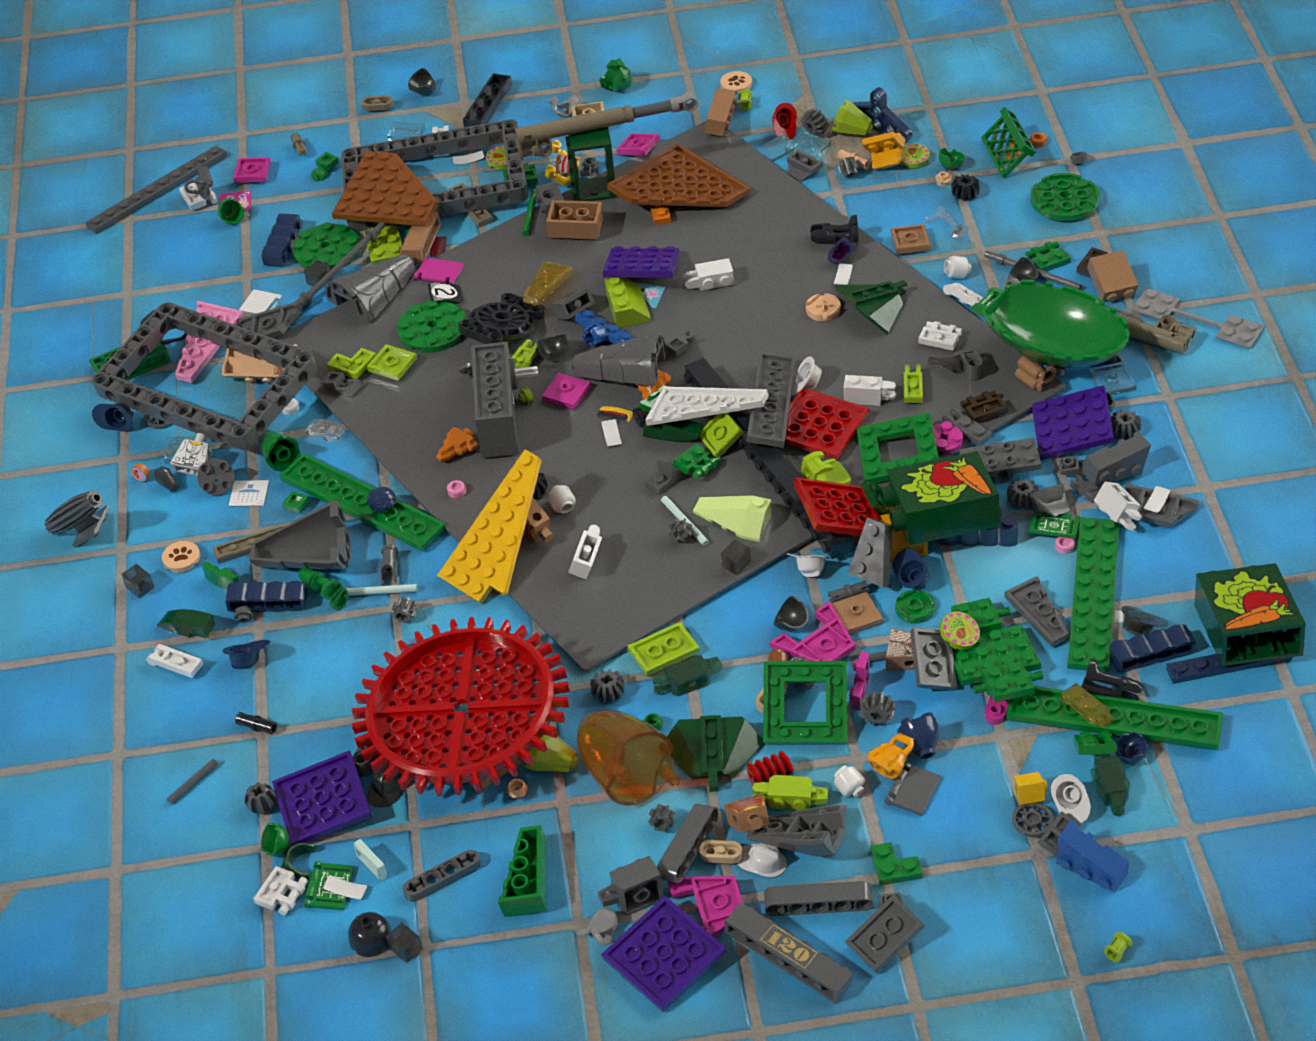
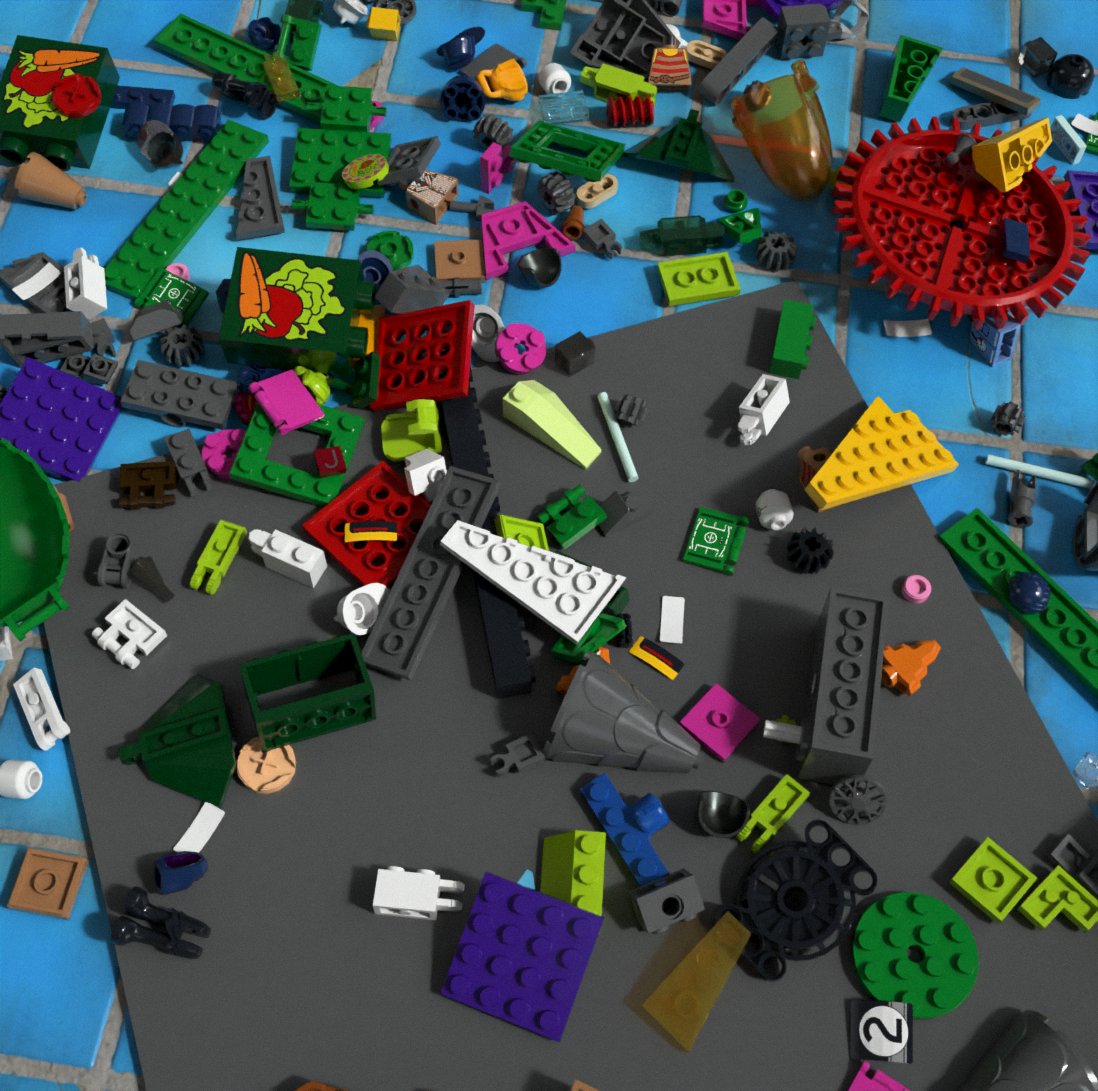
camera: 170 degrees left, 15 degrees up
(413, 695) = (1015, 240): none -> dark blue tile
(431, 740) = (1010, 154): none -> yellow wedge
(442, 887) = (995, 91): none -> dark tan tile
(466, 744) = (962, 148): none -> dark grey piece
(576, 612) = (792, 339): none -> green brick
(596, 481) = (716, 540): none -> green piece
(639, 694) = (742, 225): none -> green wing
(751, 659) = (600, 236): none -> dark grey plate
(776, 548) = (531, 339): none -> dark pink plate
(801, 448) = (425, 473): none -> white brick
(806, 310) = (316, 714): none -> dark green hose
(822, 413) = (370, 531): none -> sticker
(829, 760) = (564, 107): none -> clear light blue plate
(869, 438) = (329, 461): none -> dark red tile
(915, 452) = (286, 401): none -> dark pink piece
(947, 780) = (461, 49): none -> dark blue piece
(1200, 562) = (47, 184): none -> medium nougat cone
(1218, 595) = (76, 96): none -> red tile

